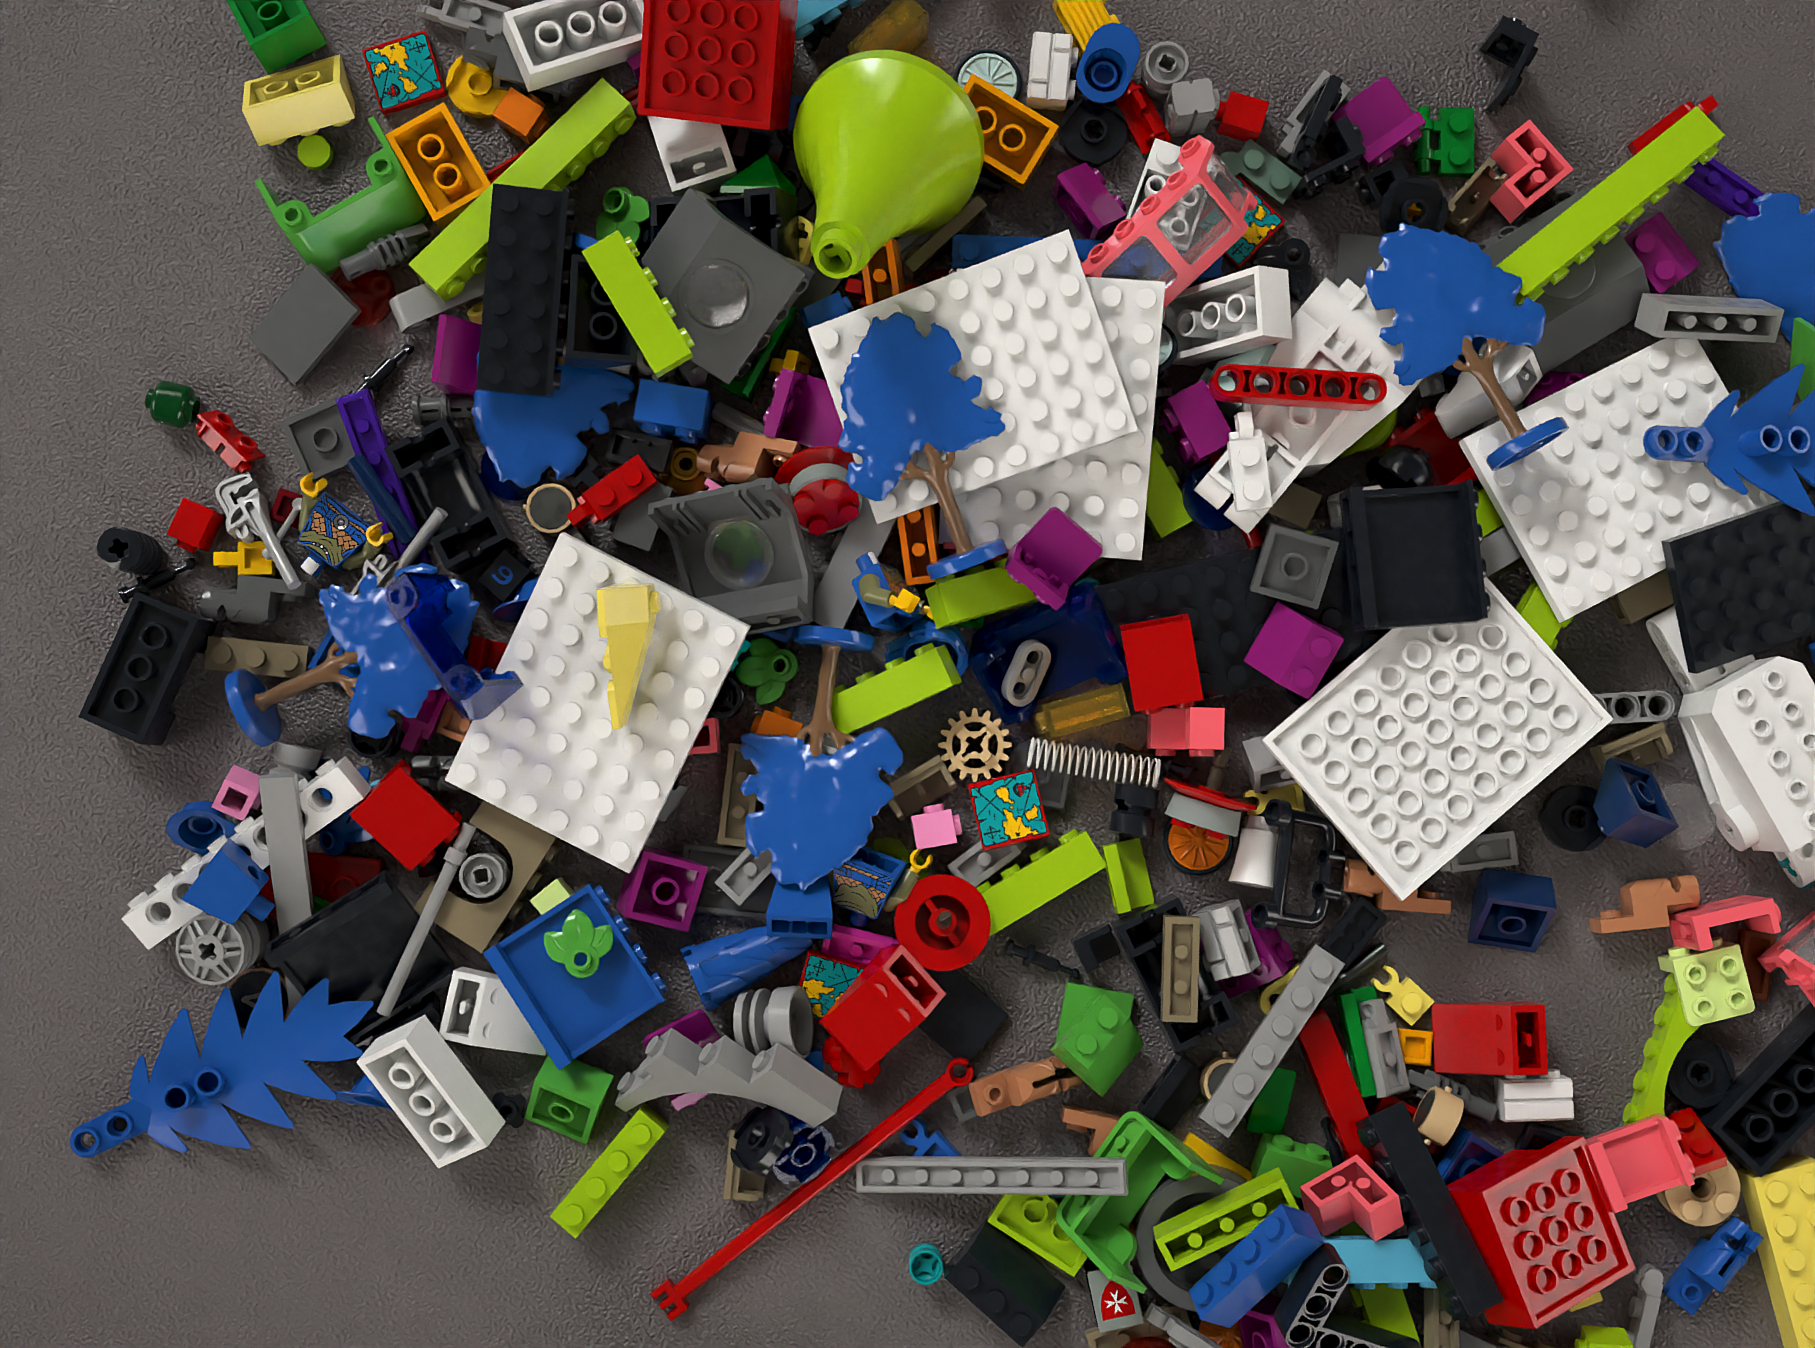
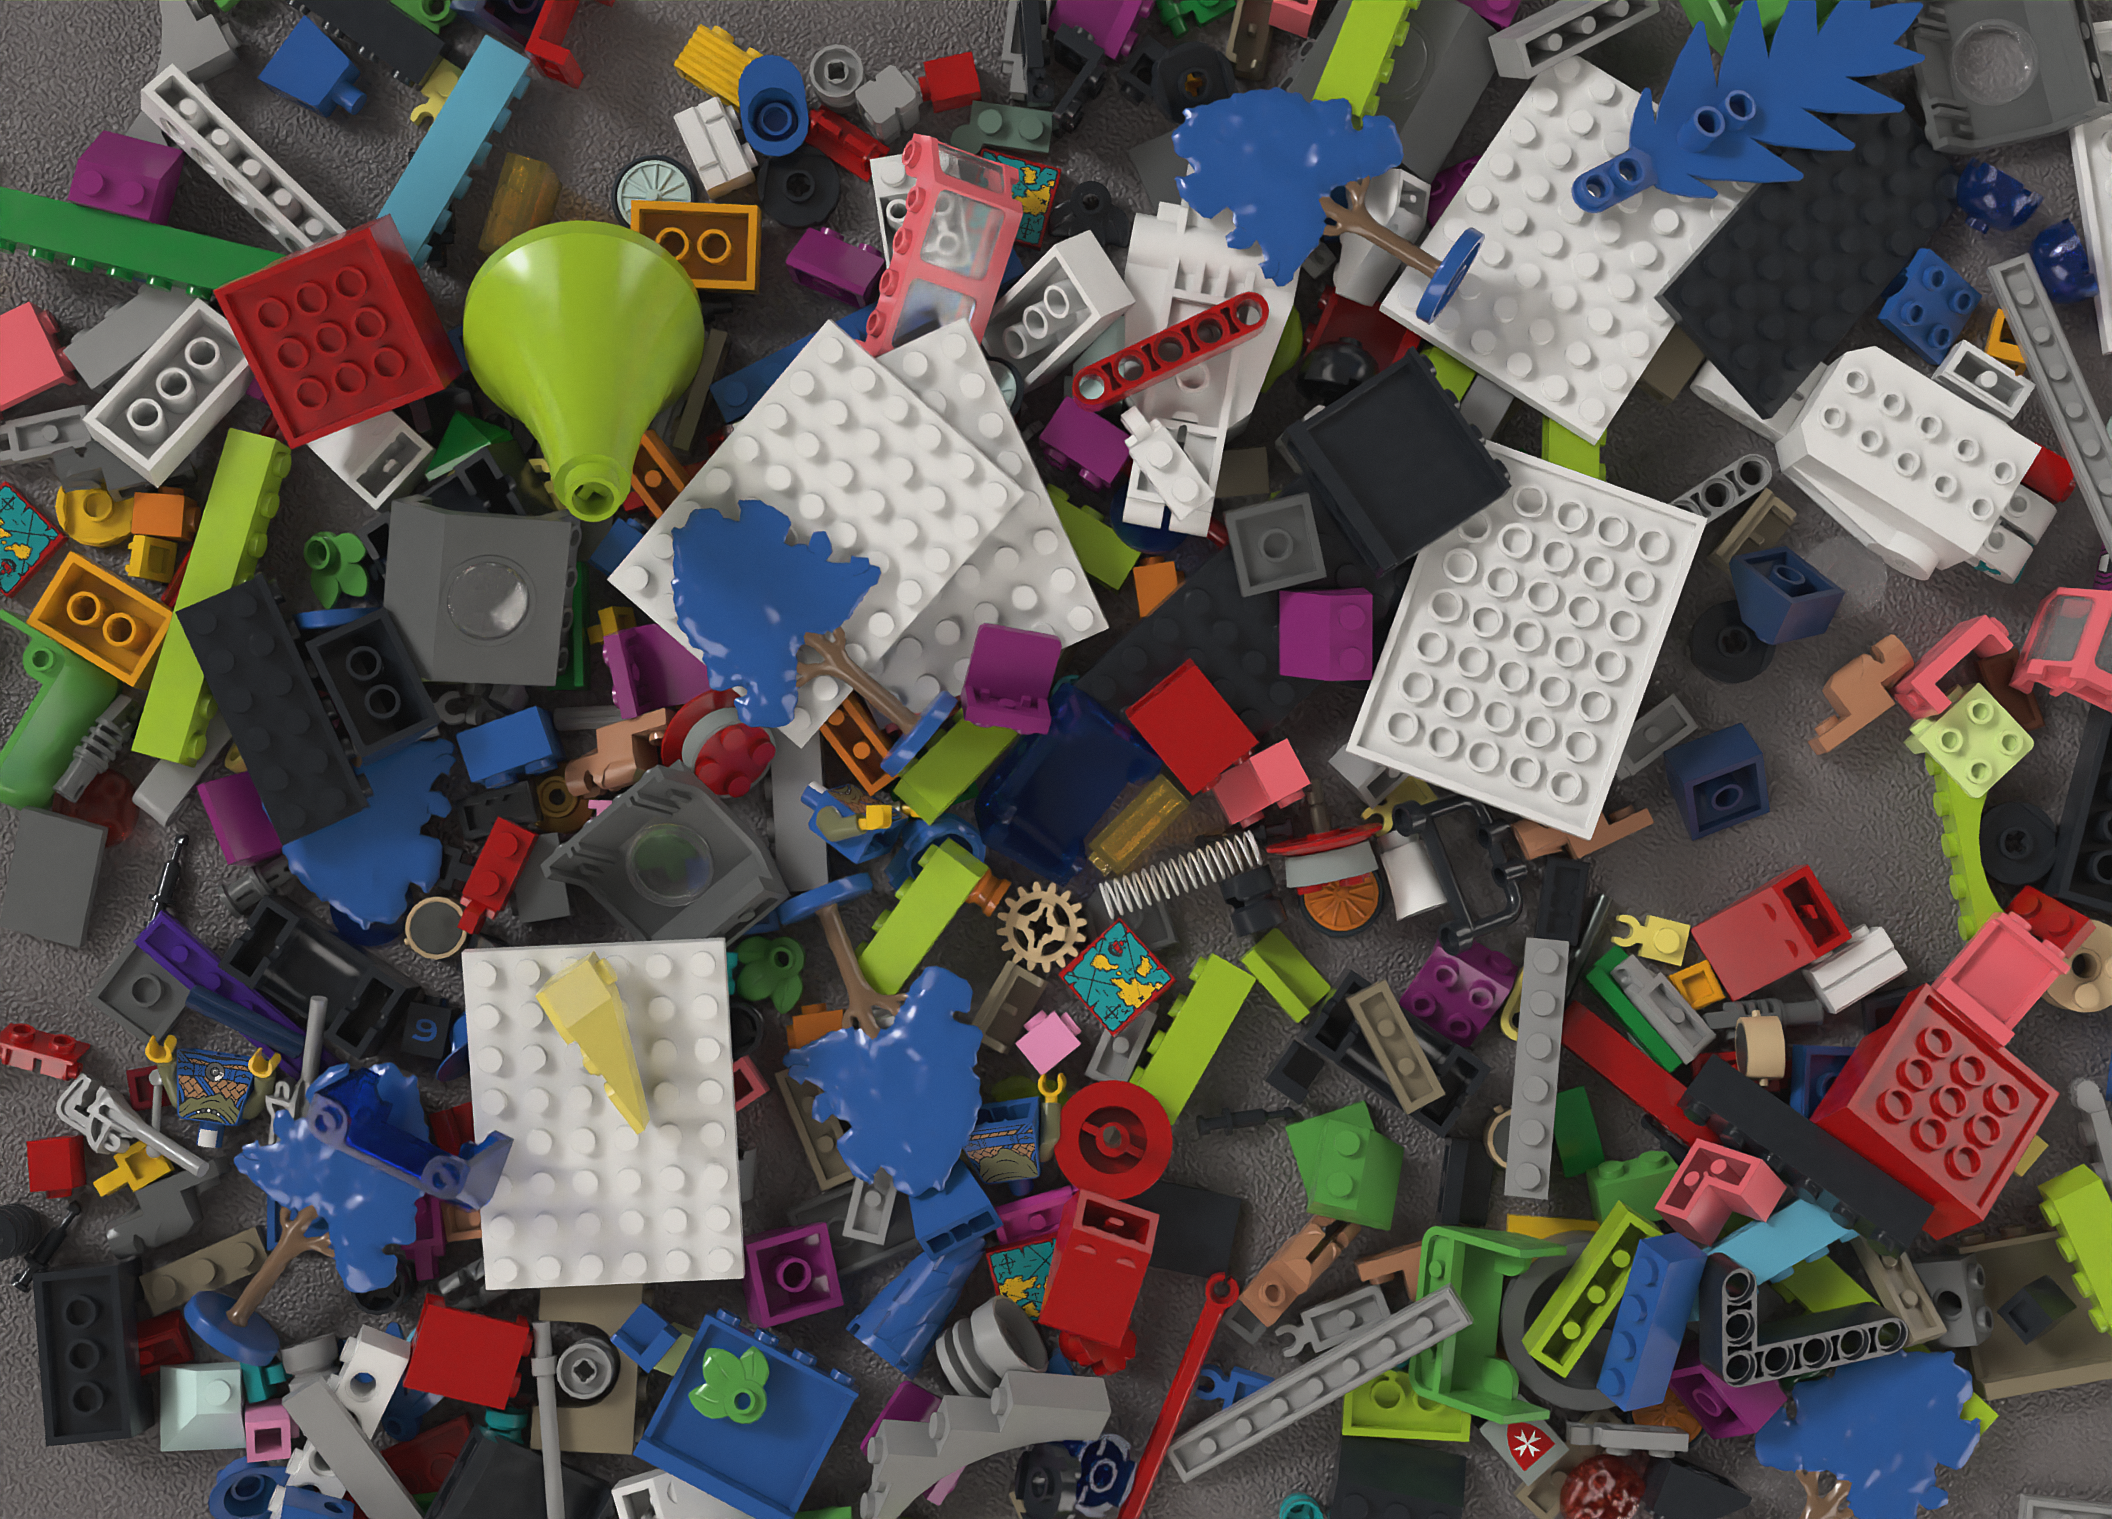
camera: 25 degrees left, 0 degrees up
(200, 691) = (163, 1342): none -> red slope
(202, 751) = (202, 1406): none -> light aqua slope
(253, 756) = (262, 1380): none -> teal tile
(407, 881) = (507, 1421): none -> teal wheel
(496, 141) = (152, 559): none -> yellow tile
(537, 876) = (645, 1337): none -> blue panel
(638, 304) = (406, 657): lime brick -> none
(950, 700) = (989, 893): none -> orange wheel
(1027, 672) = (1055, 816): light grey plate -> none
(1028, 1138) = (1336, 1319): none -> light grey plate
(1188, 547) = (1153, 582): none -> orange brick
(1226, 940) = (1429, 987): light grey brick -> none

